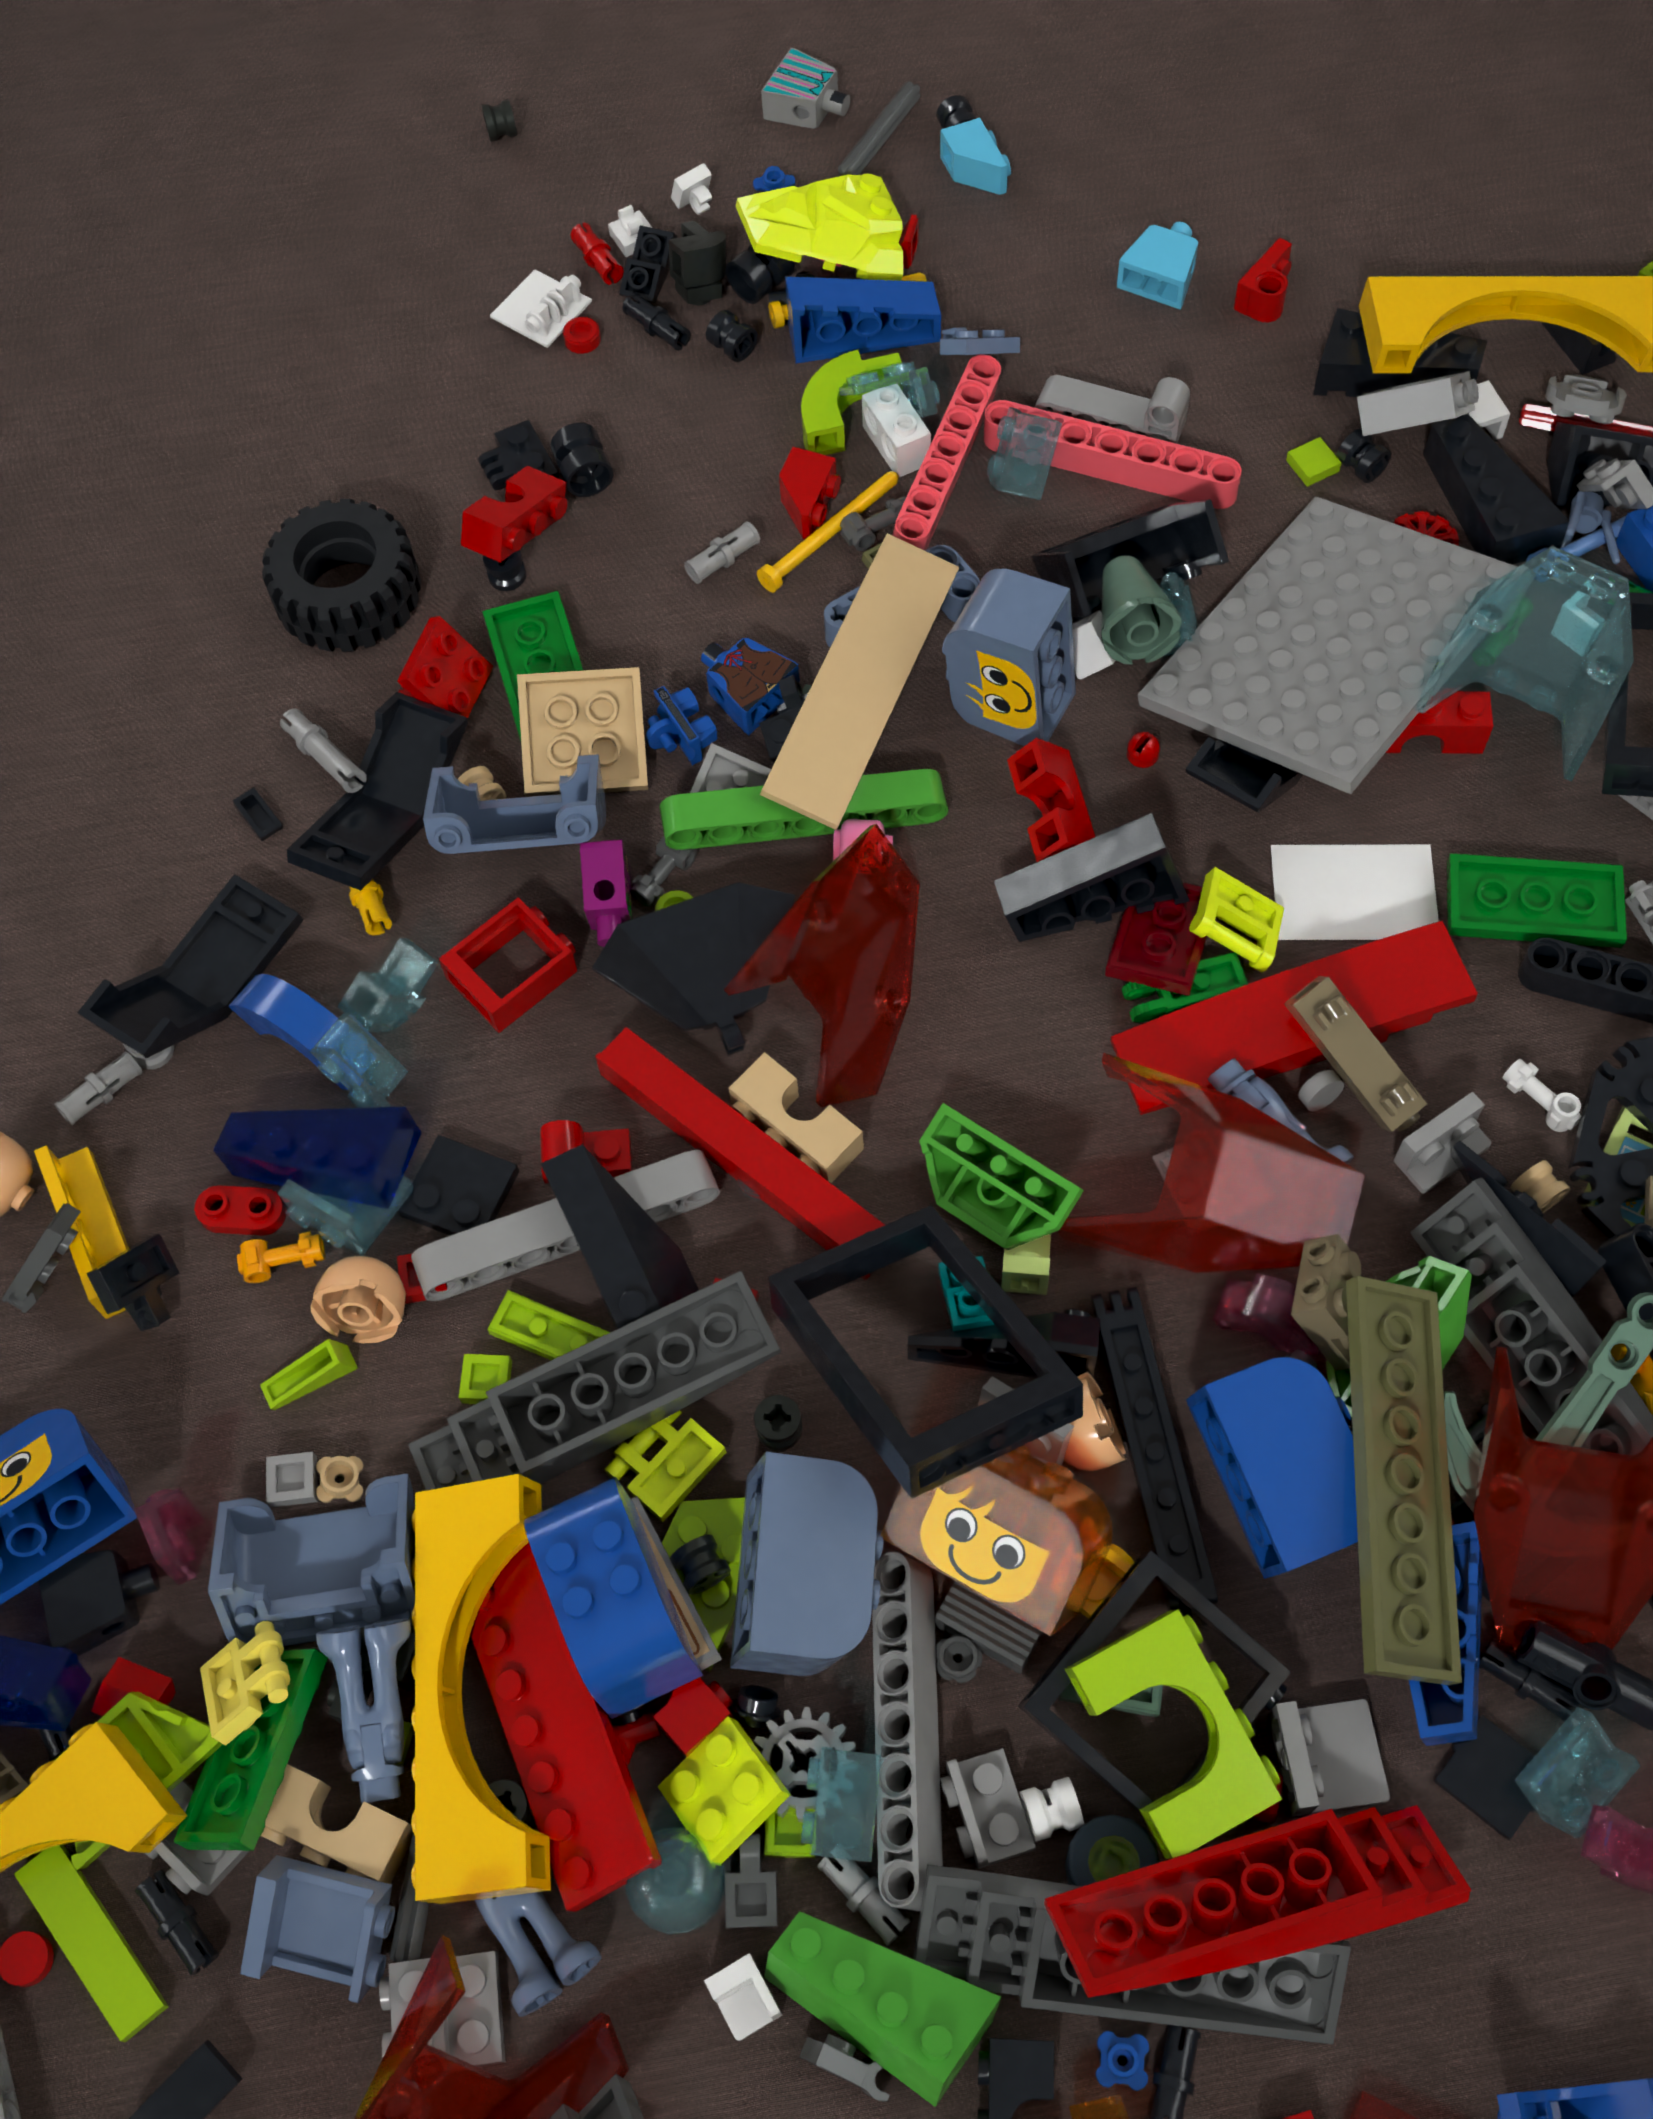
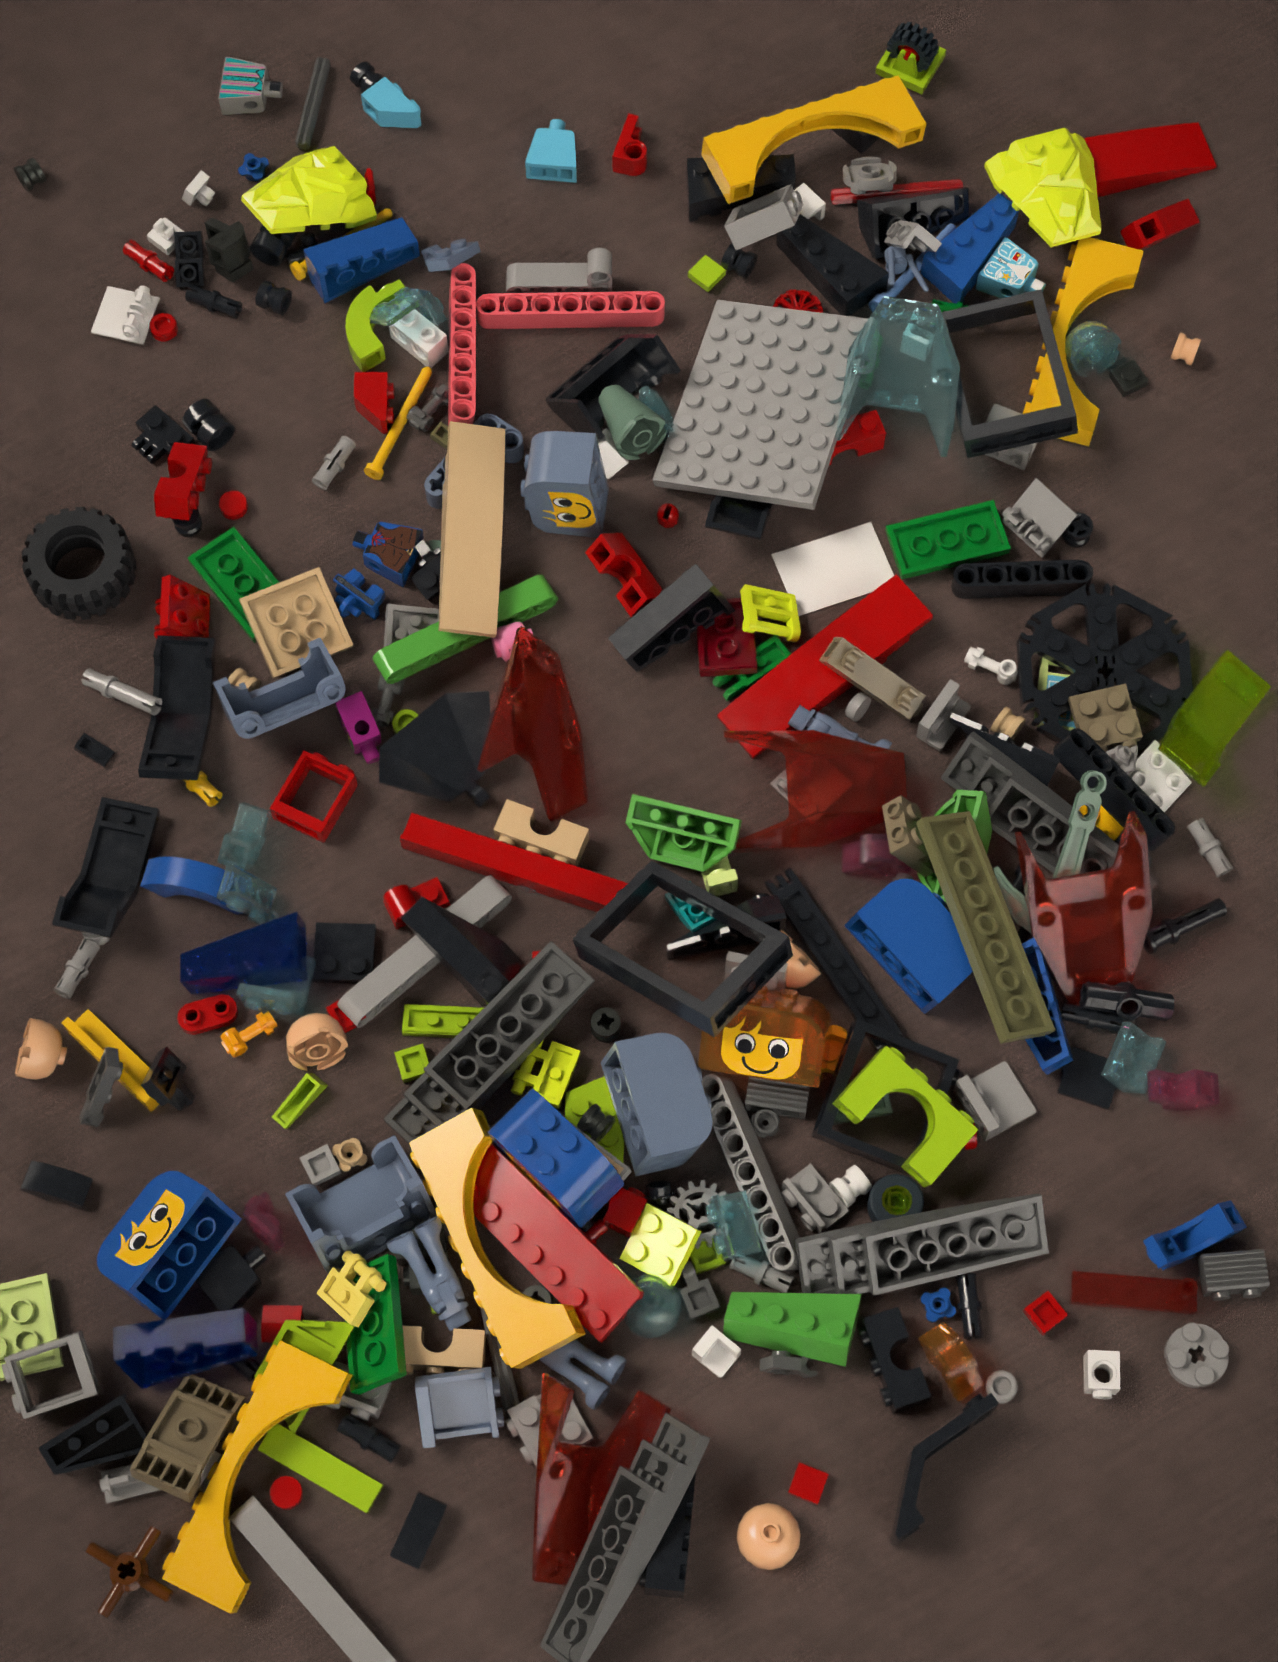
camera: 25 degrees left, 5 degrees up
(572, 567) = (233, 505): none -> red tile
(1023, 453) = (513, 330): clear light blue bracket -> none
(1256, 1899) = (983, 1187): red slope -> none

